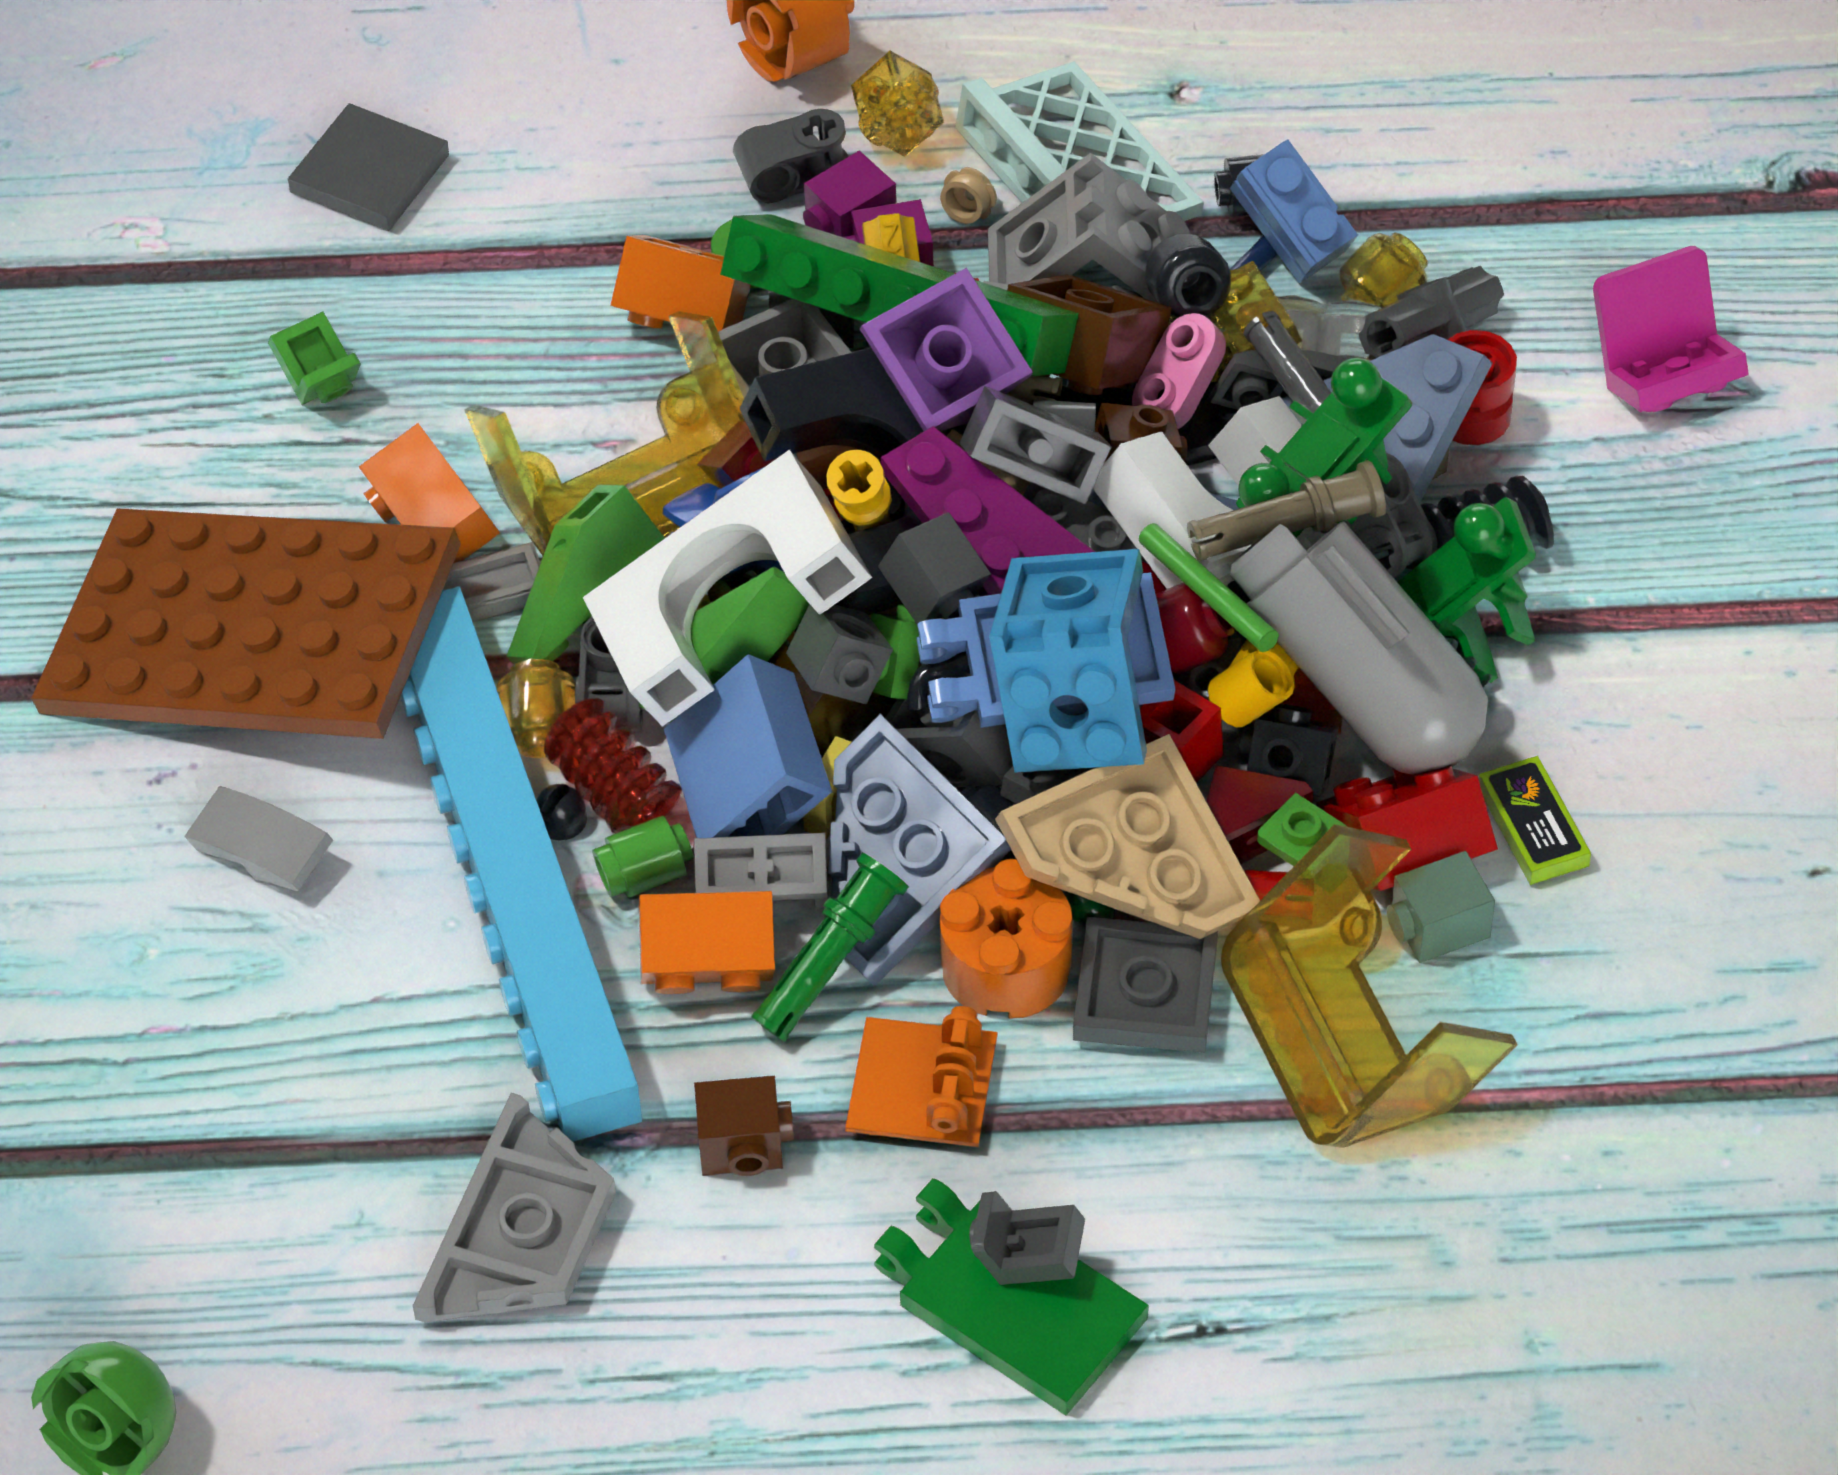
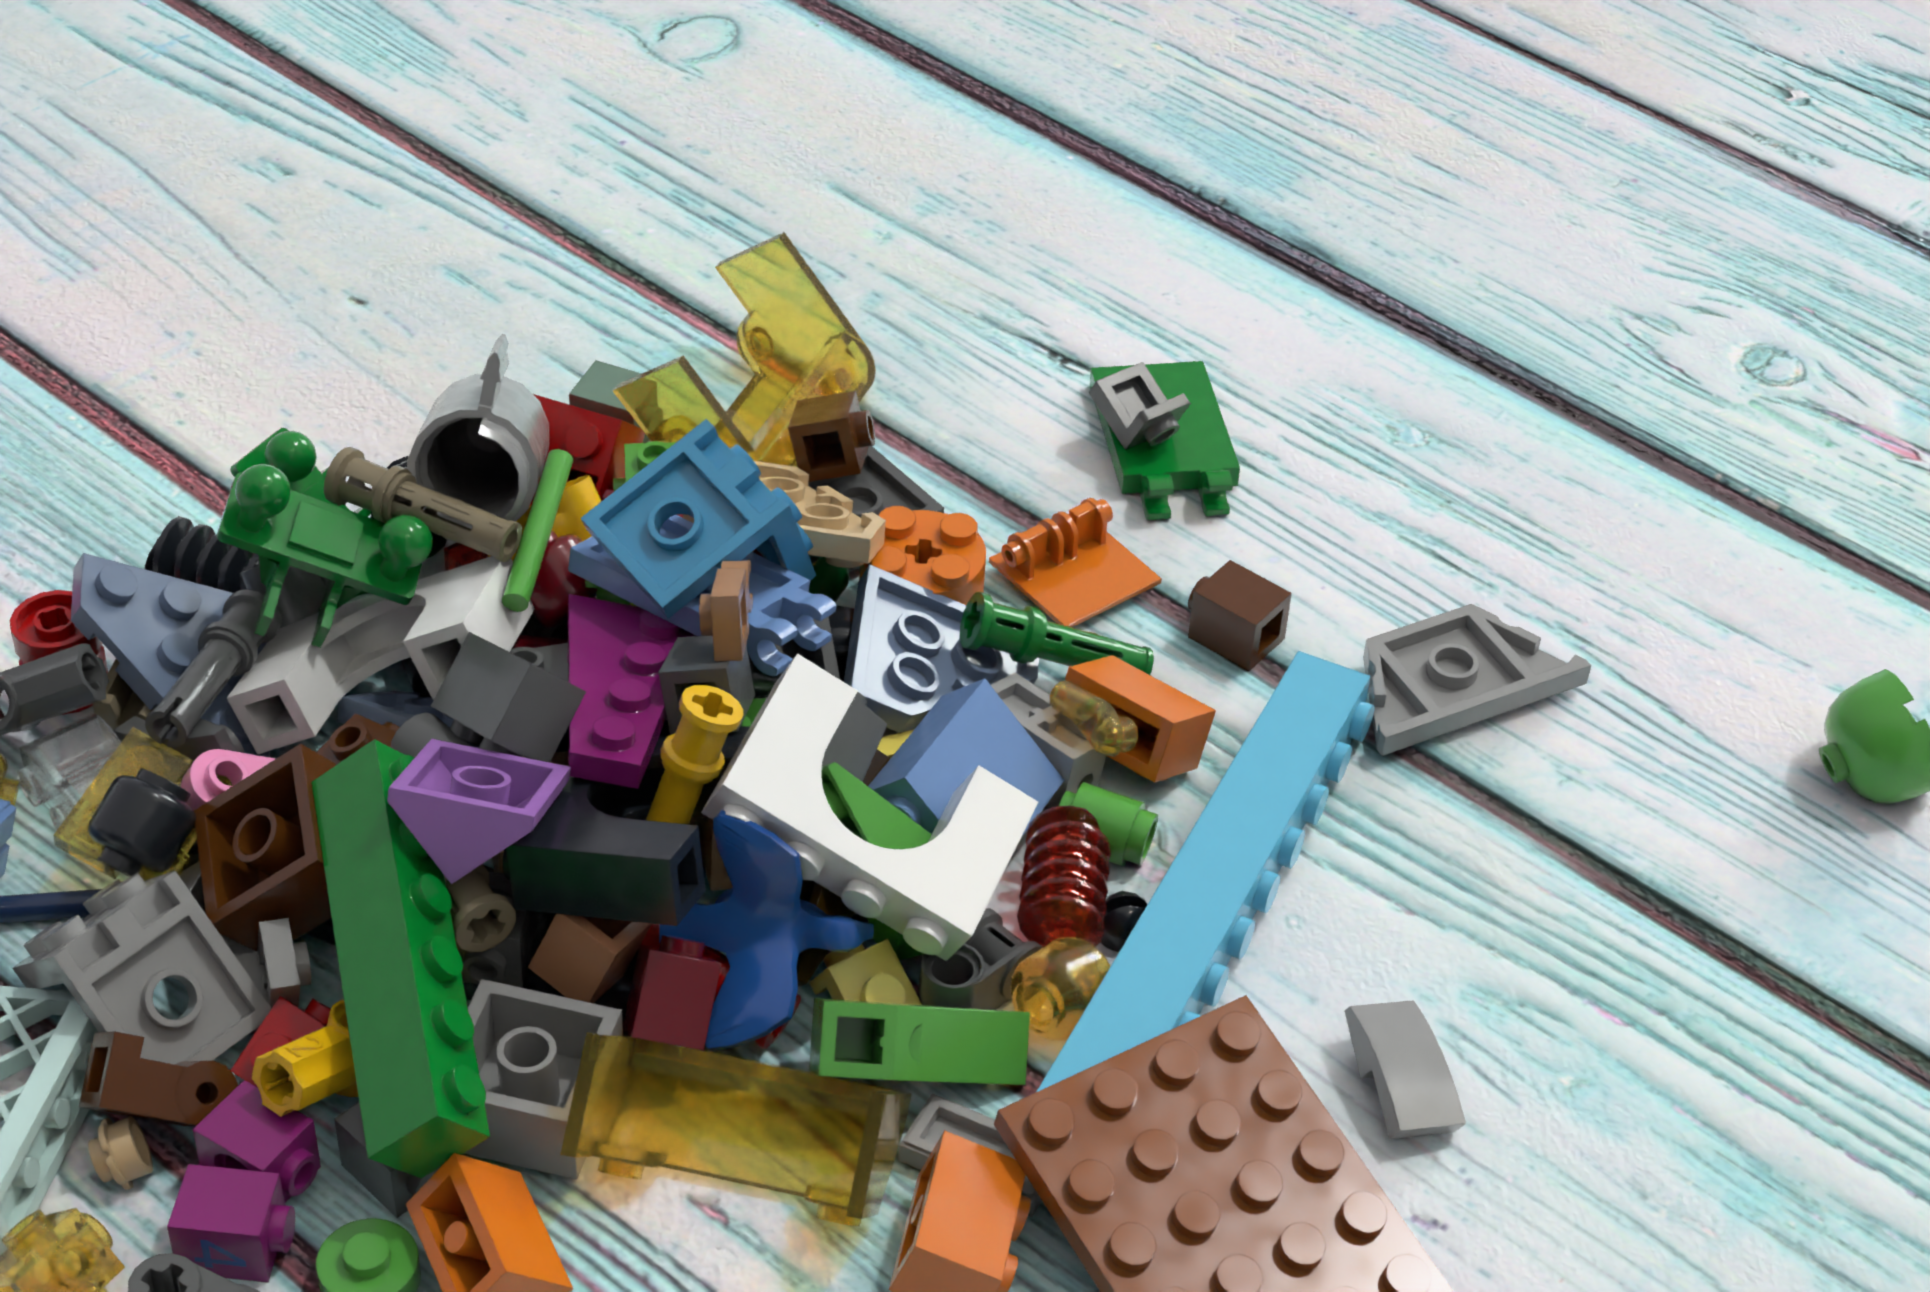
camera: 140 degrees left, 10 degrees down
(710, 864) = (1095, 719): none -> clear yellow arm
(944, 564) = (727, 609): none -> medium nougat plate
(979, 208) = (150, 1089): none -> reddish brown leg
(1216, 974) = (831, 435): none -> reddish brown brick

